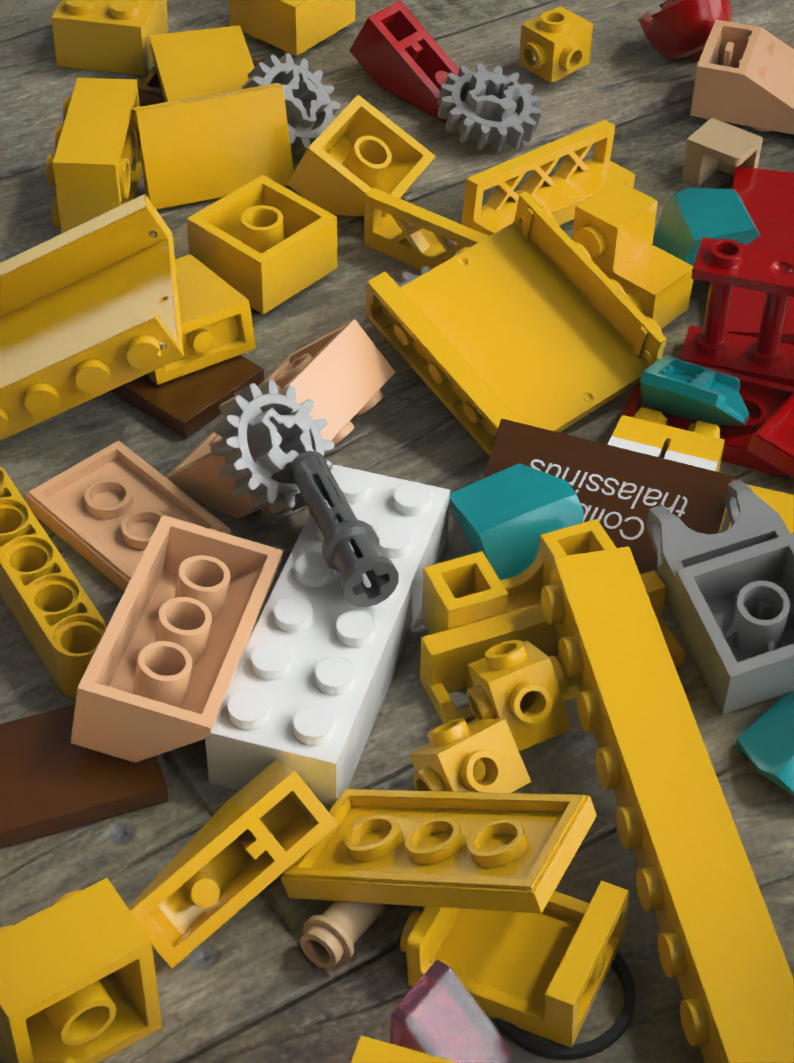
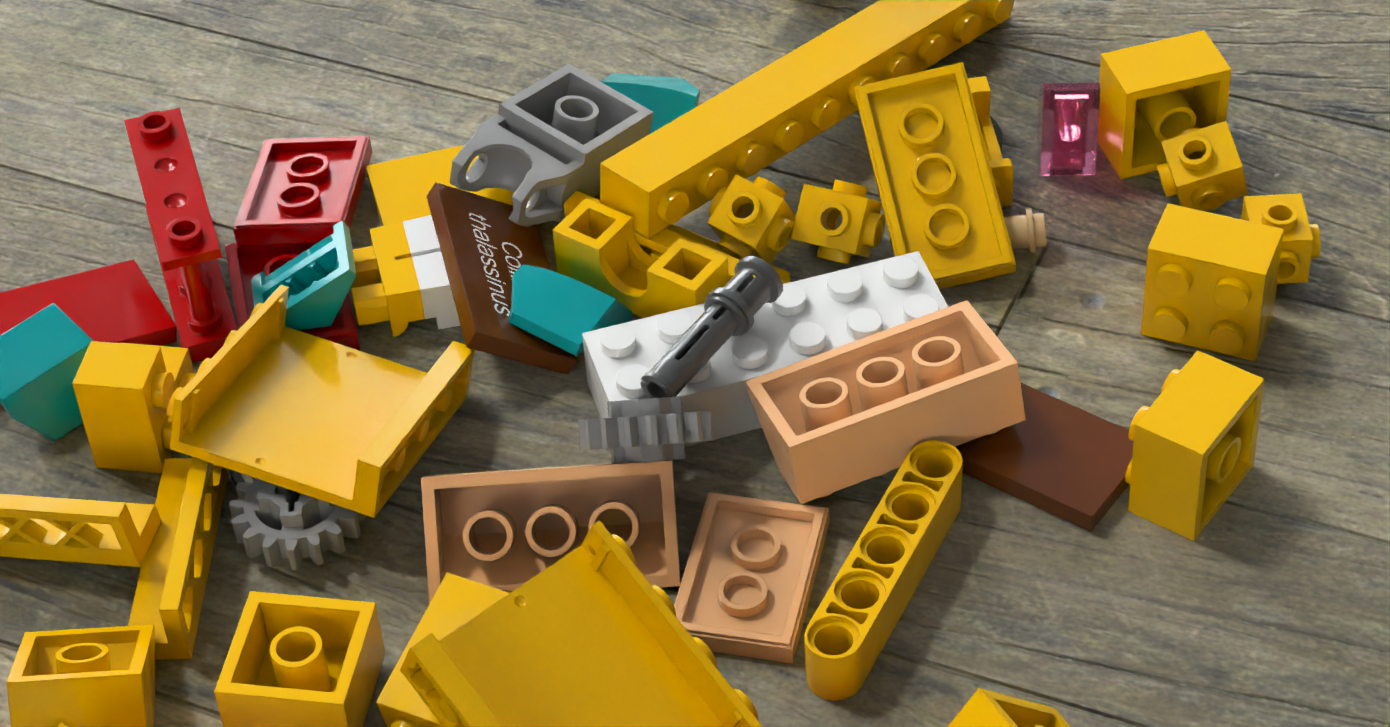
camera: 120 degrees left, 0 degrees up
(231, 860) = (1012, 284): yellow slope -> none

